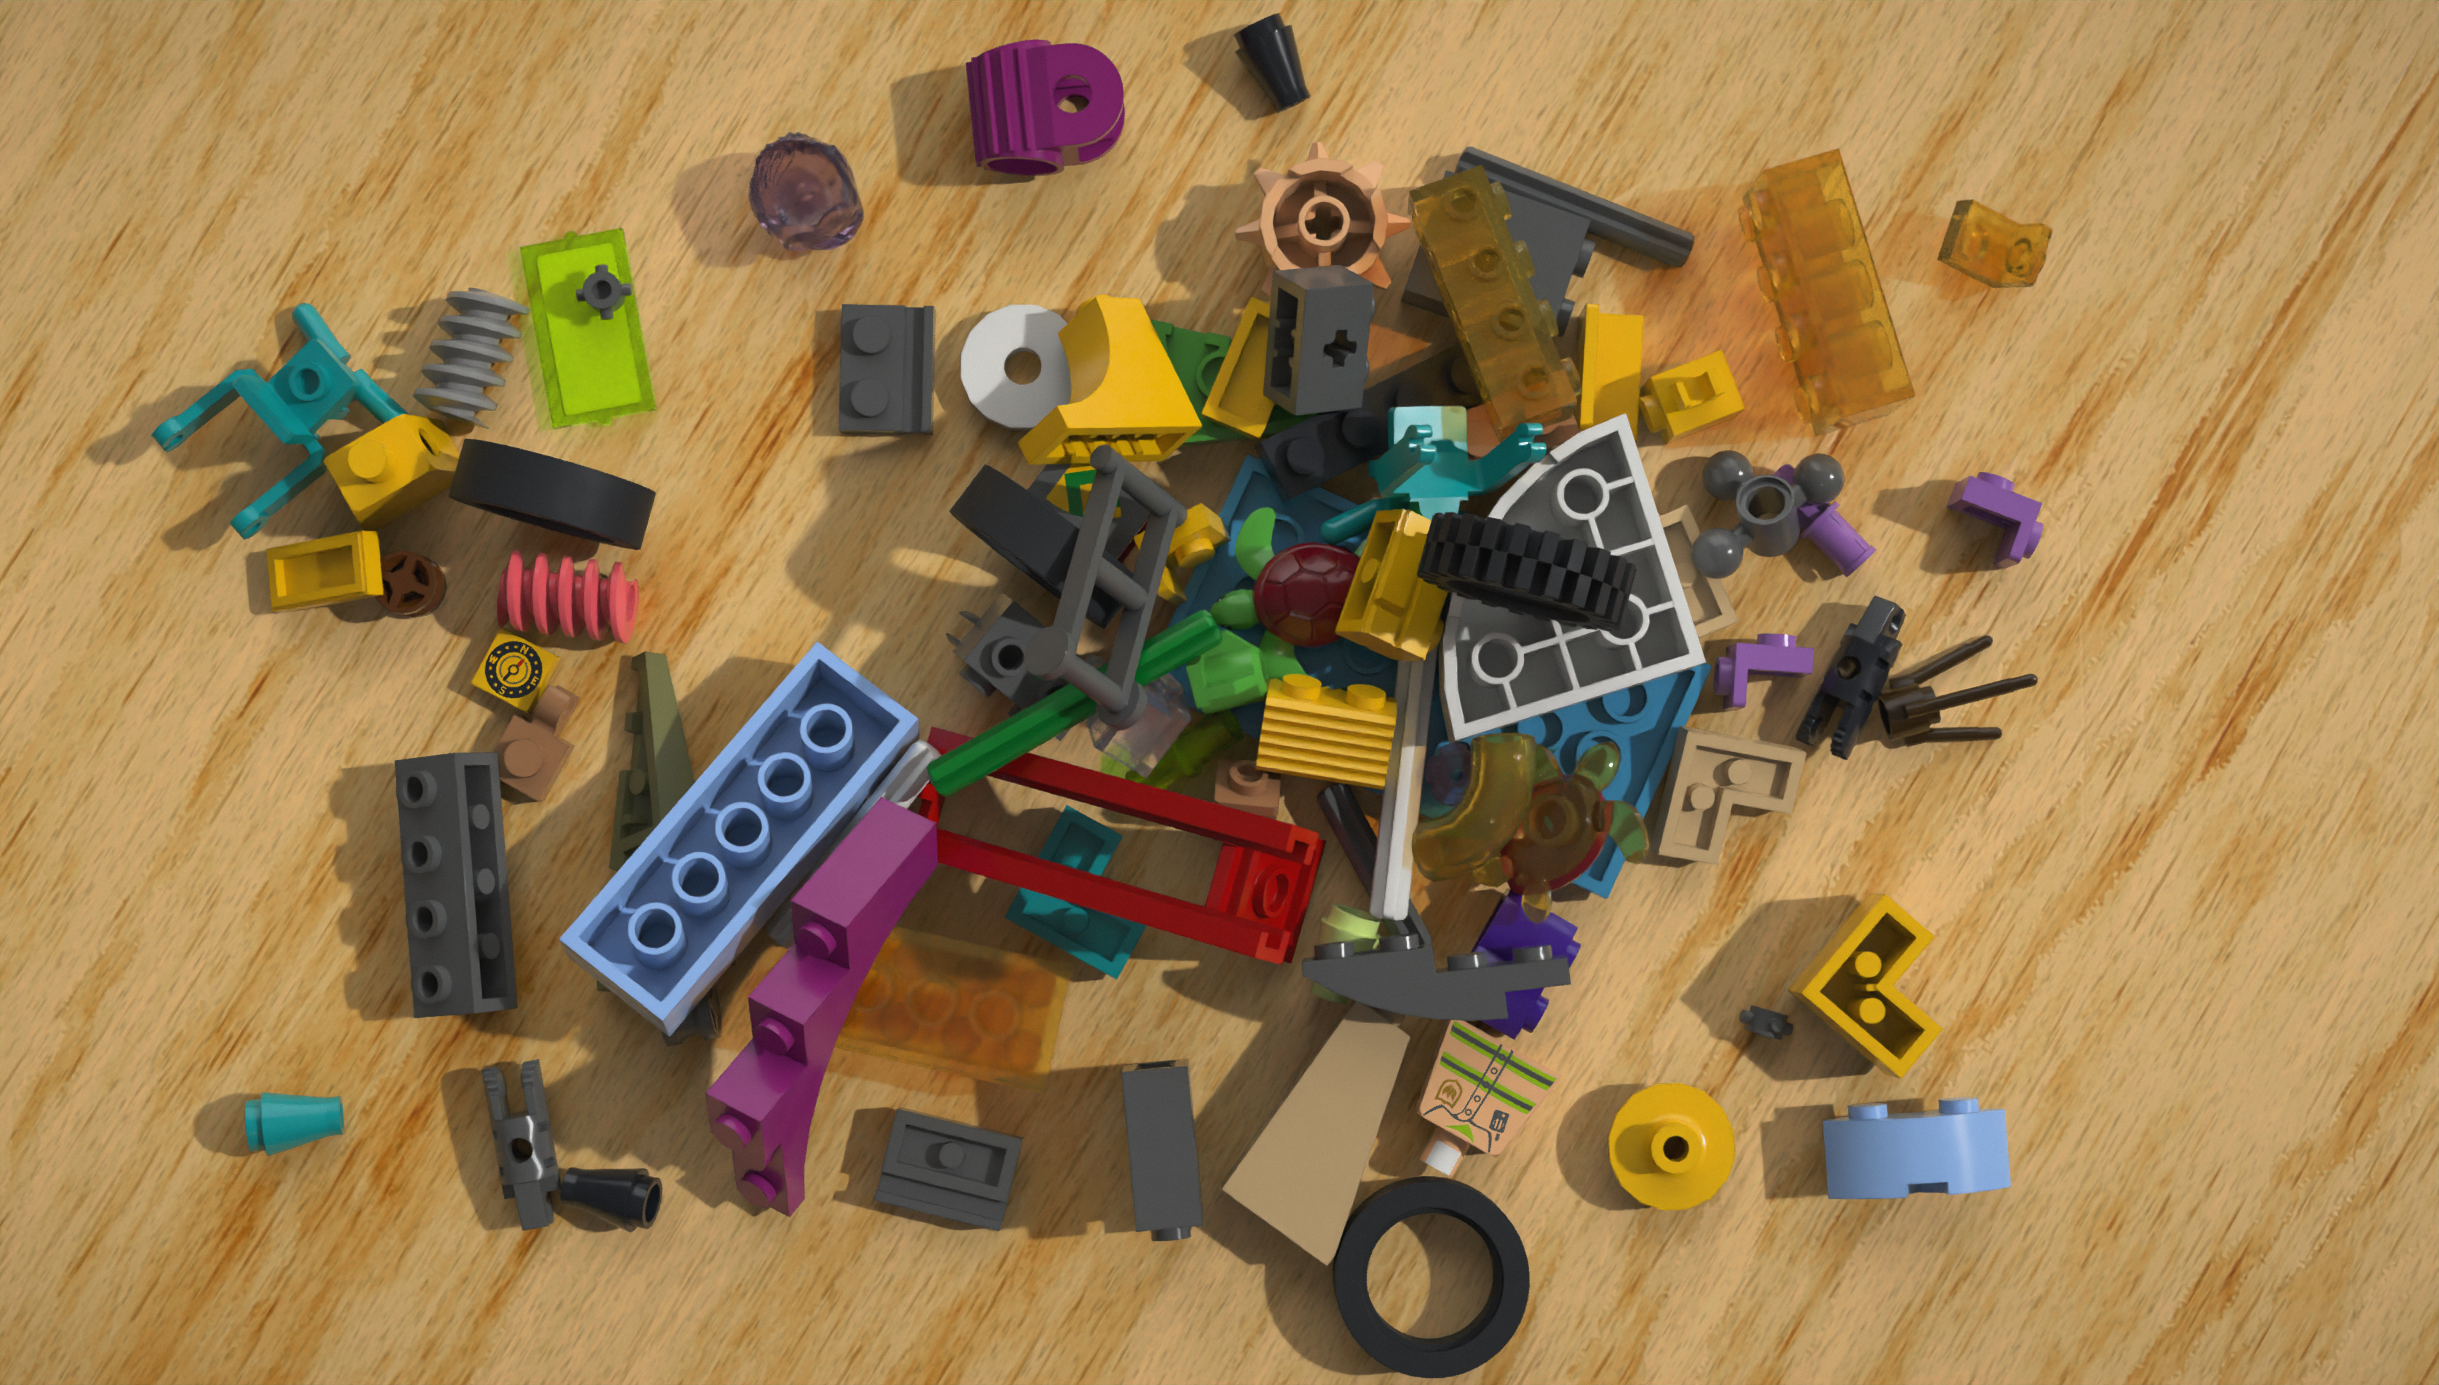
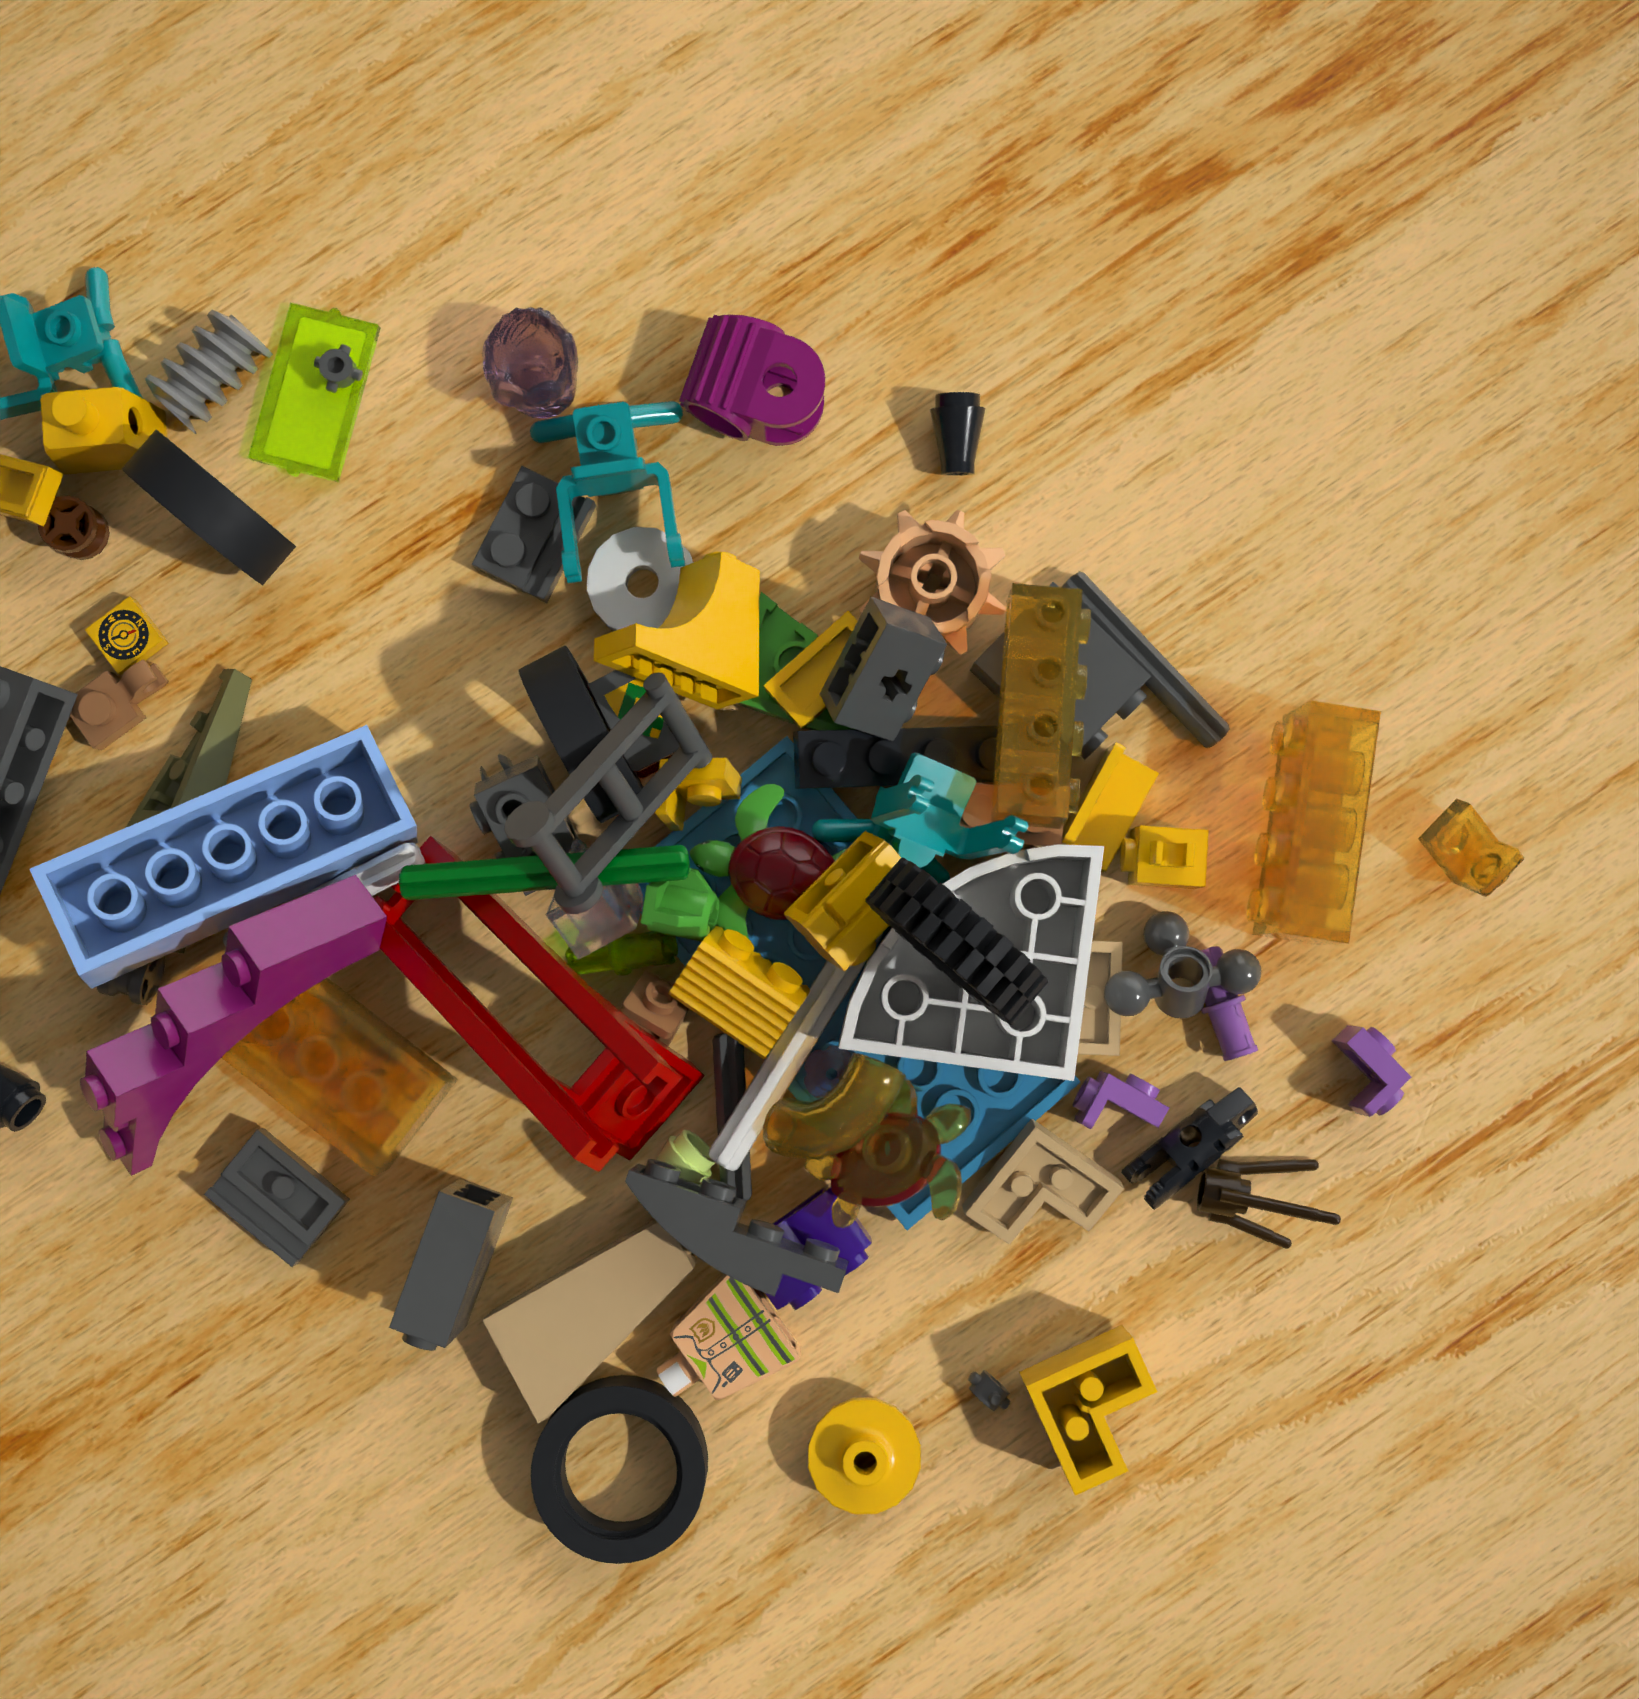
camera: 25 degrees right, 0 degrees up
(567, 599) = (189, 598): coral piece -> none
(936, 261) = (610, 466): none -> teal piece
(1081, 931) = (505, 991): teal plate -> none
(1916, 1152) = (1075, 1561): light blue brick -> none

